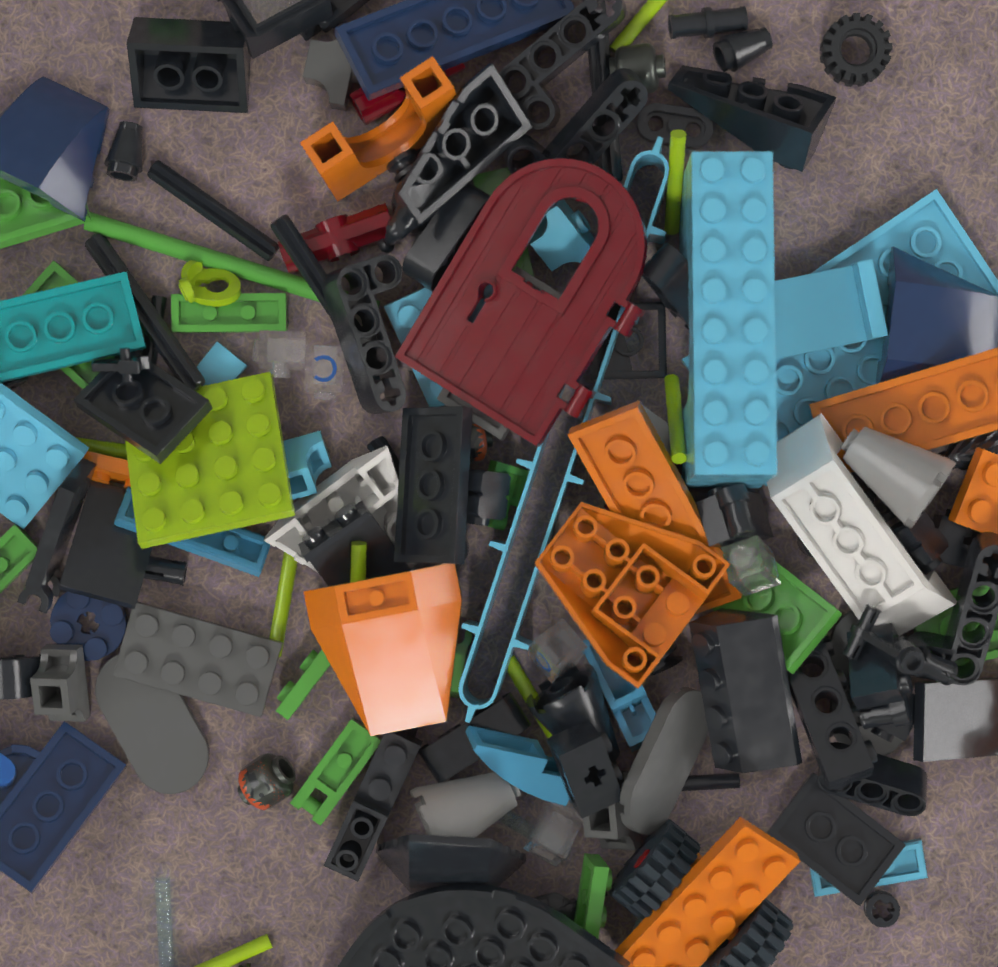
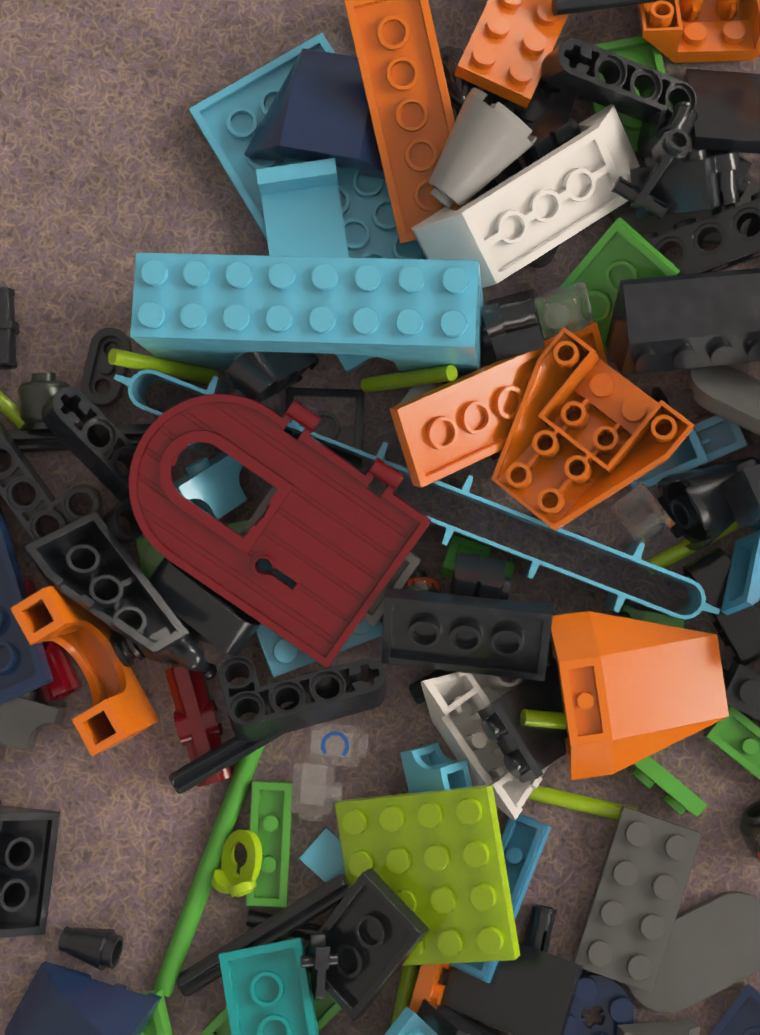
camera: 85 degrees left, 5 degrees down
(213, 210) = (160, 855): black axle -> none
(740, 48) = (32, 297): black cone -> none
(760, 117) = (100, 283): black wedge -> none
(860, 27) = (27, 166): black tyre -> none

